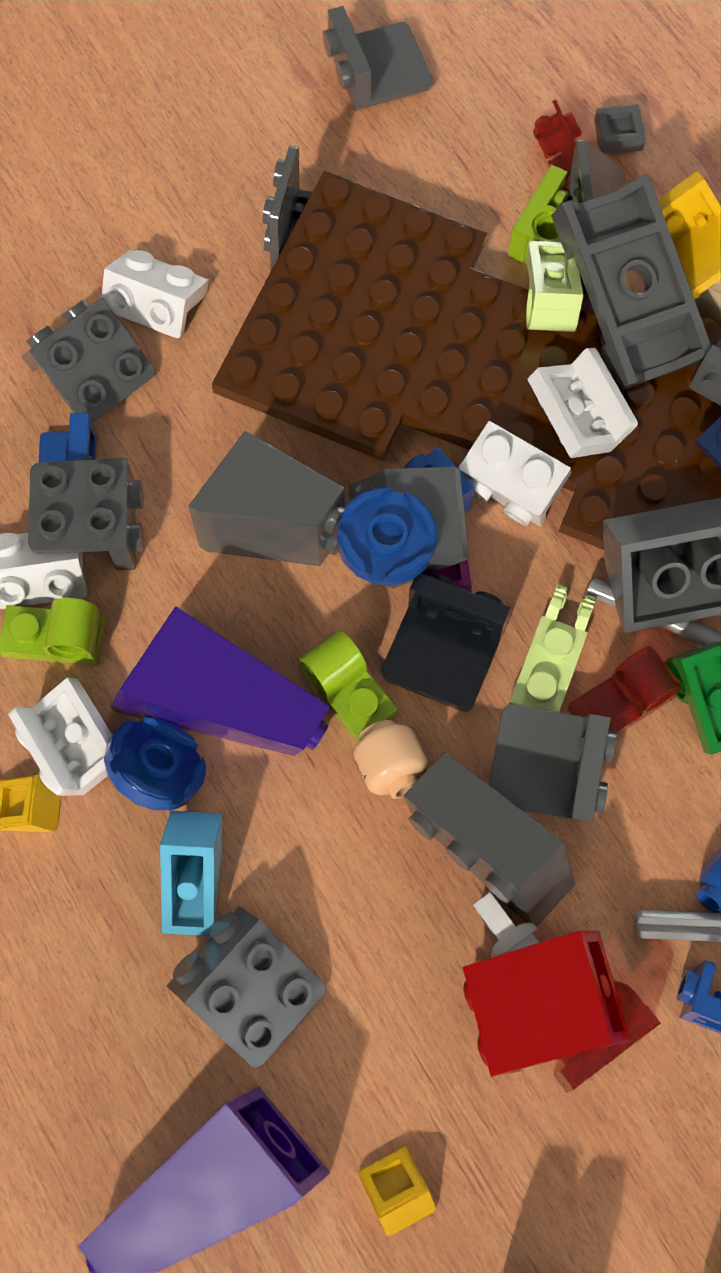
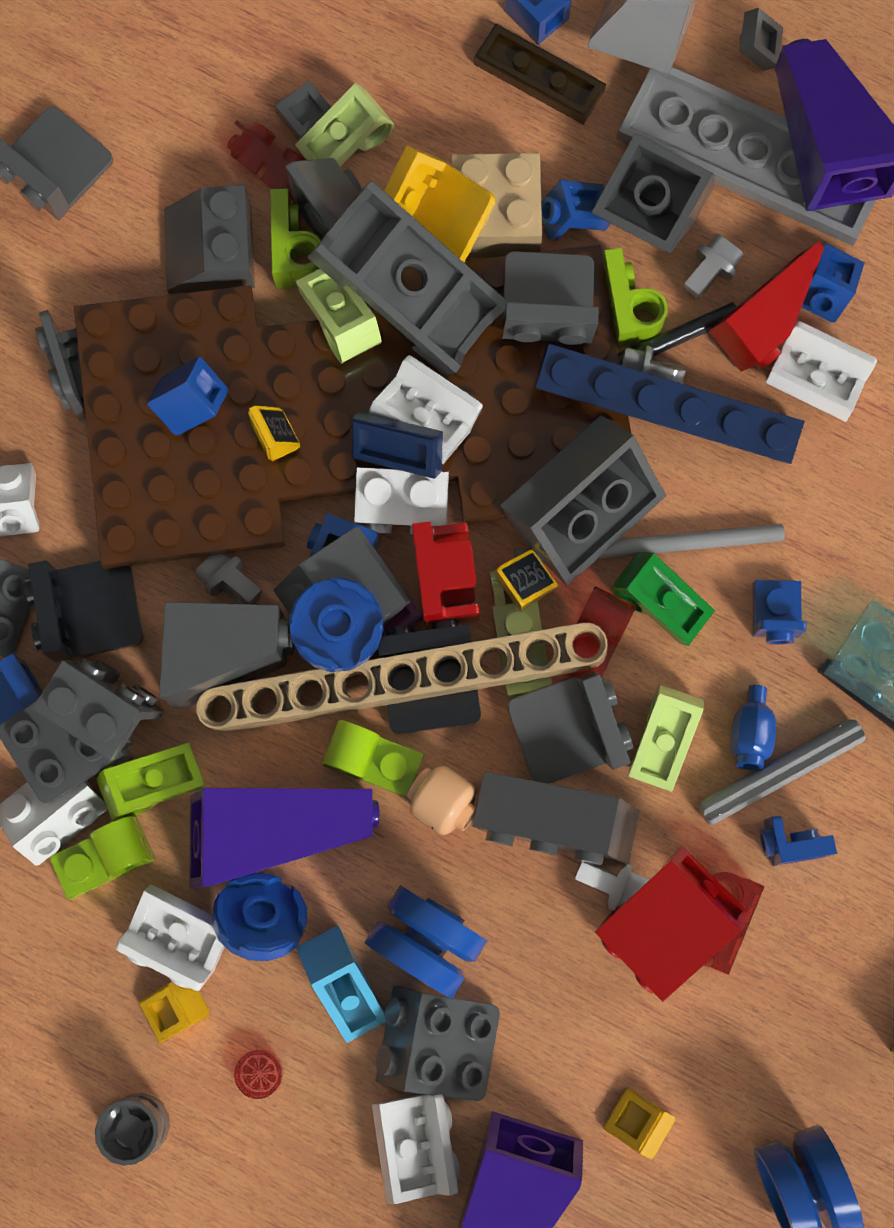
camera: 30 degrees left, 10 degrees up
(63, 911) = (258, 1073): none -> clear red tile
(129, 489) = (95, 705): none -> dark grey bracket
(135, 587) = (149, 780): none -> lime plate
(162, 1071) = (415, 1147): none -> white bracket
(171, 415) = (83, 609): none -> black bracket
(299, 872) = (426, 940): none -> blue wheel
(315, 453) = (224, 575): none -> light grey piece
(375, 282) = (187, 396): none -> blue panel
(432, 350) = (273, 431): none -> yellow slope
(434, 644) = (379, 671): none -> tan beam
(478, 182) = (209, 240): none -> dark grey slope
(515, 552) = (445, 572): none -> red panel
(538, 418) = (397, 444): none -> dark blue tile
(587, 603) = (525, 579): none -> slope
(640, 826) = (666, 737): none -> yellowish green plate
(653, 151) = (348, 125): none -> yellowish green plate

